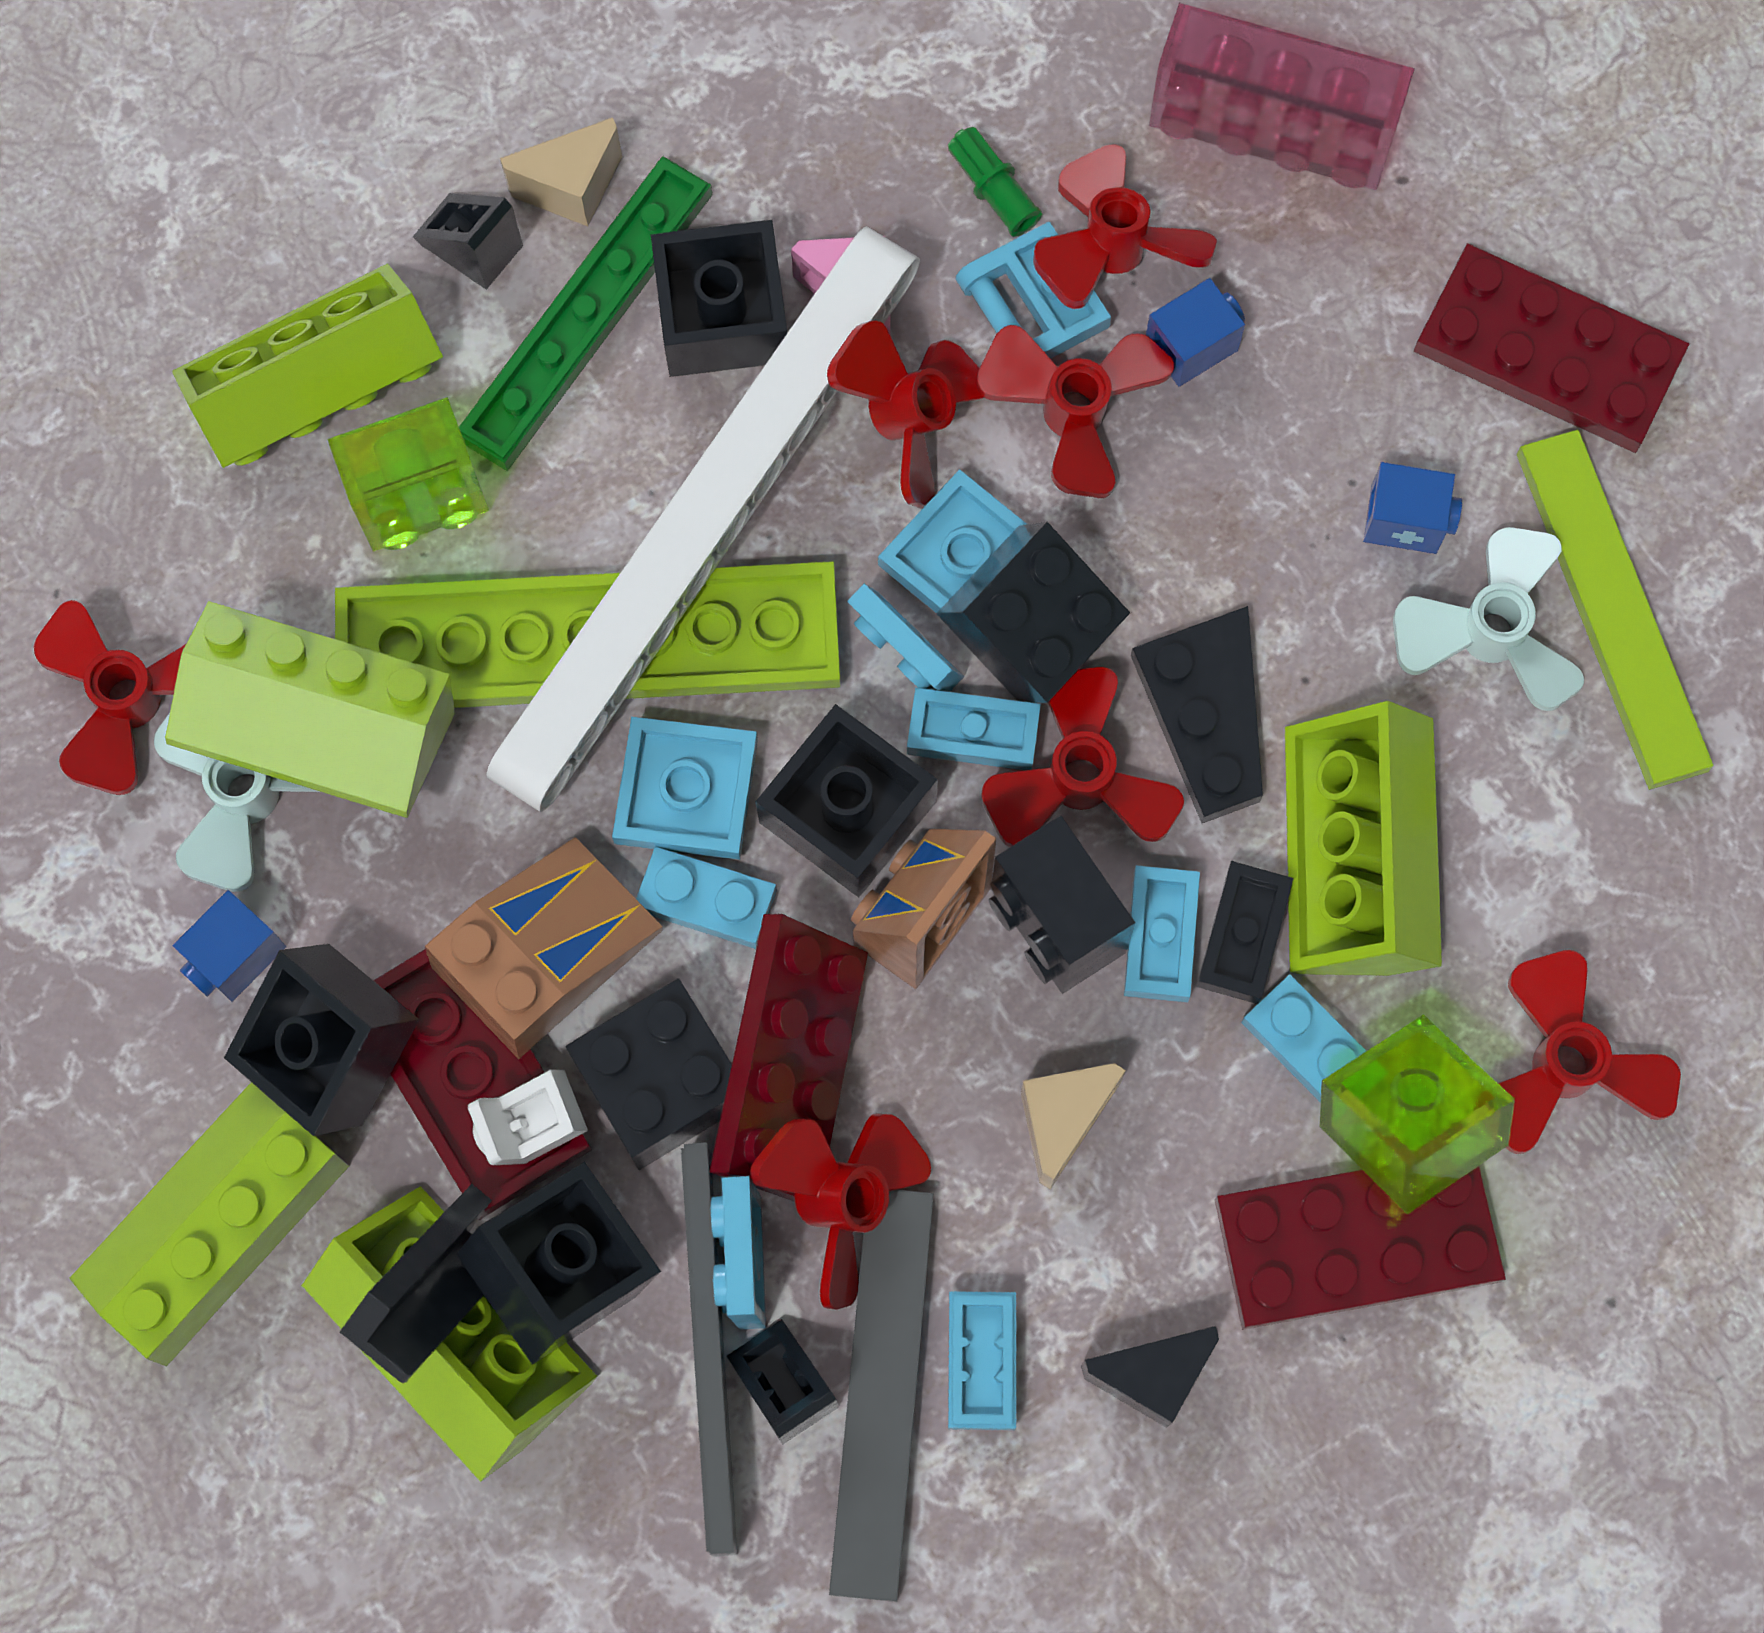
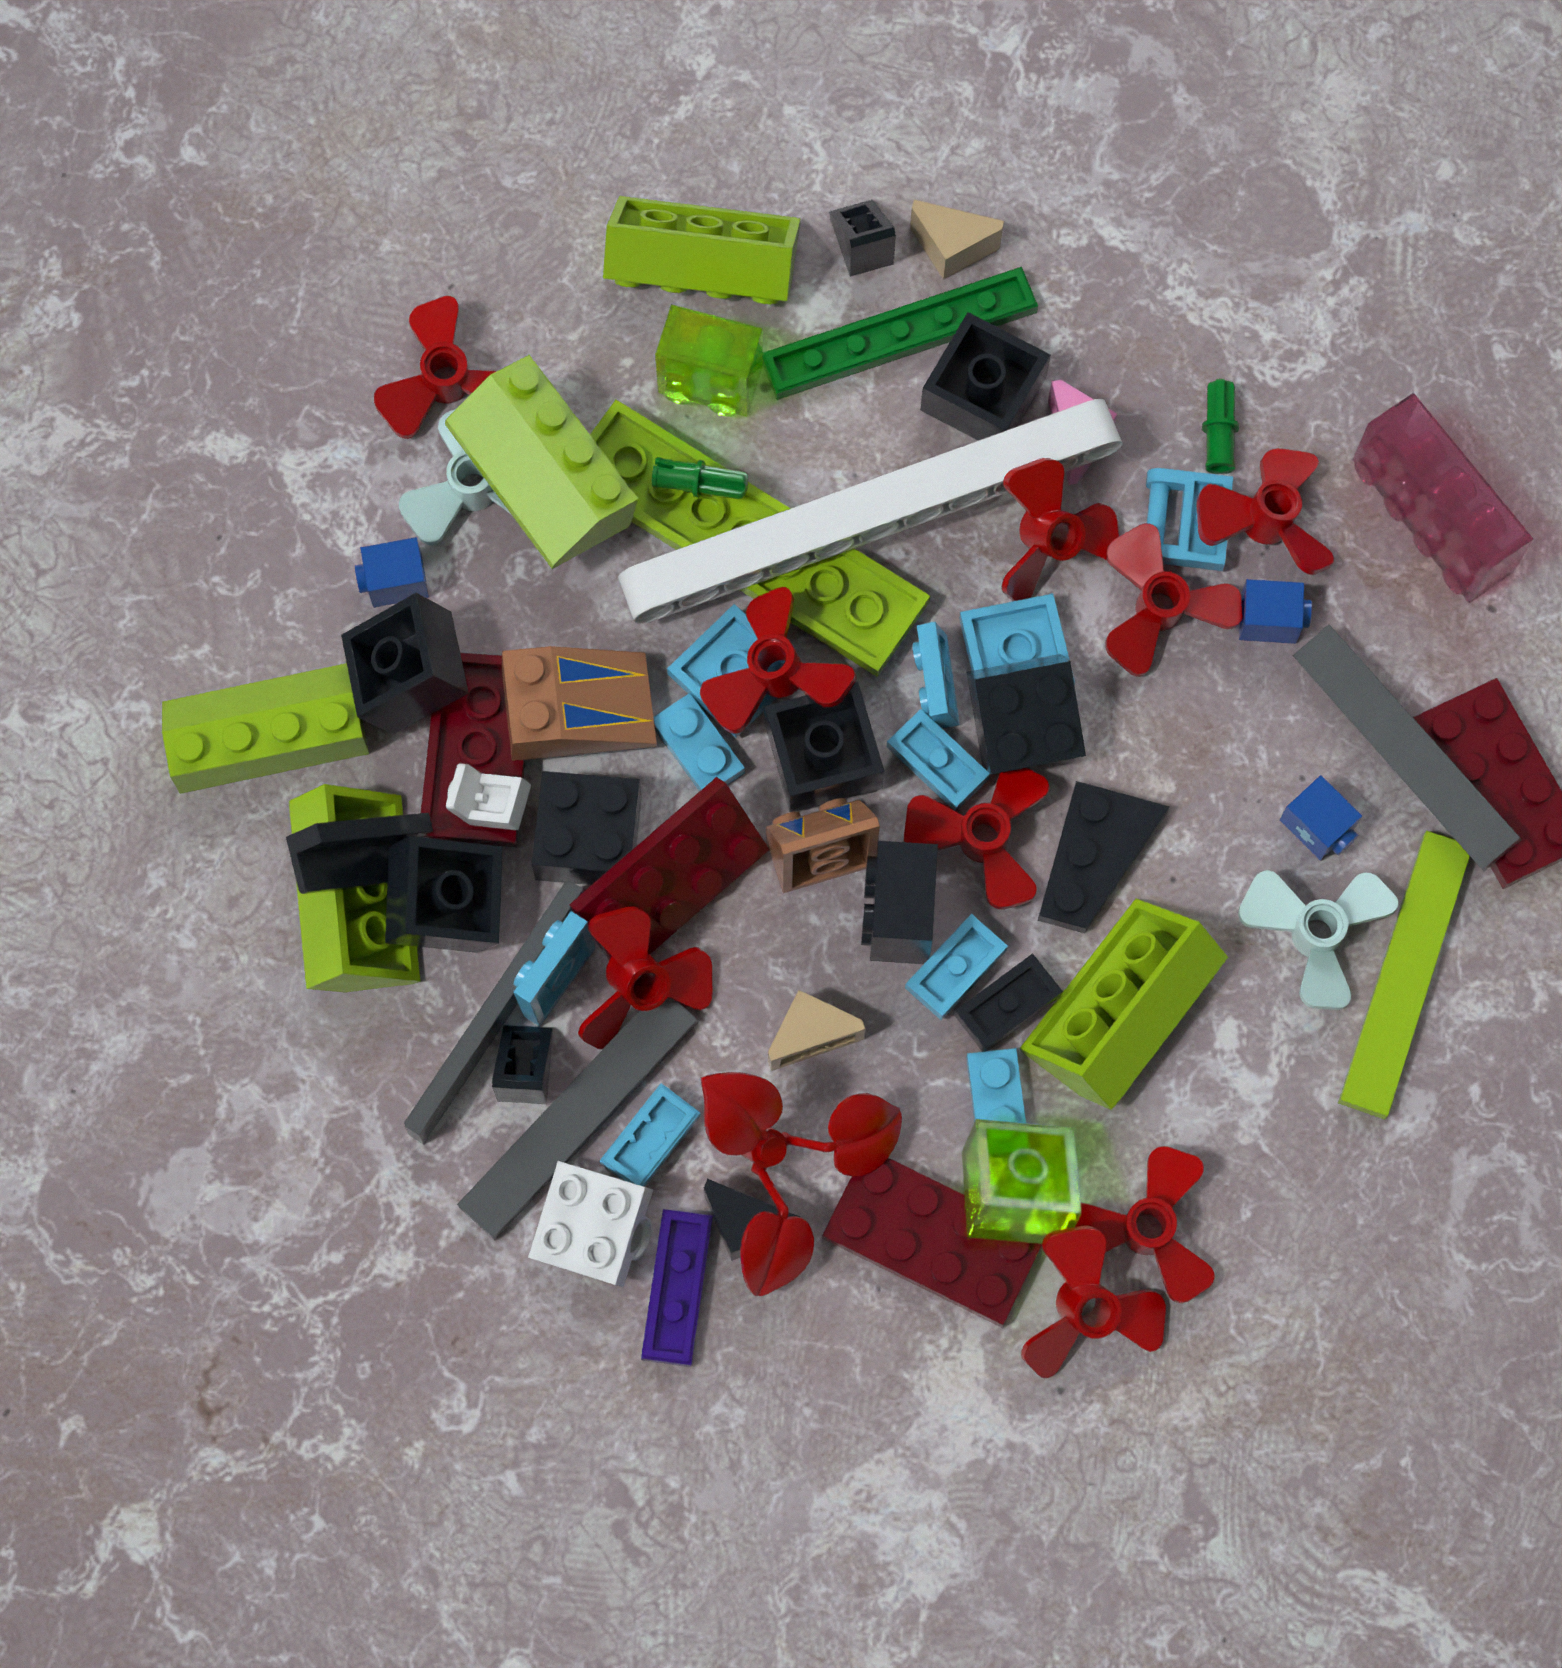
camera: 35 degrees right, 0 degrees up
(494, 608) = (699, 478): none -> green axle
(714, 810) = (737, 695): none -> red piece
(995, 1504) = (592, 1224): none -> white plate
(1092, 1272) = (740, 1122): none -> red plant
(1134, 1503) = (676, 1288): none -> dark purple tile
(1438, 375) = (1407, 748): none -> dark grey tile
(1579, 1190) = (1079, 1260): none -> red piece

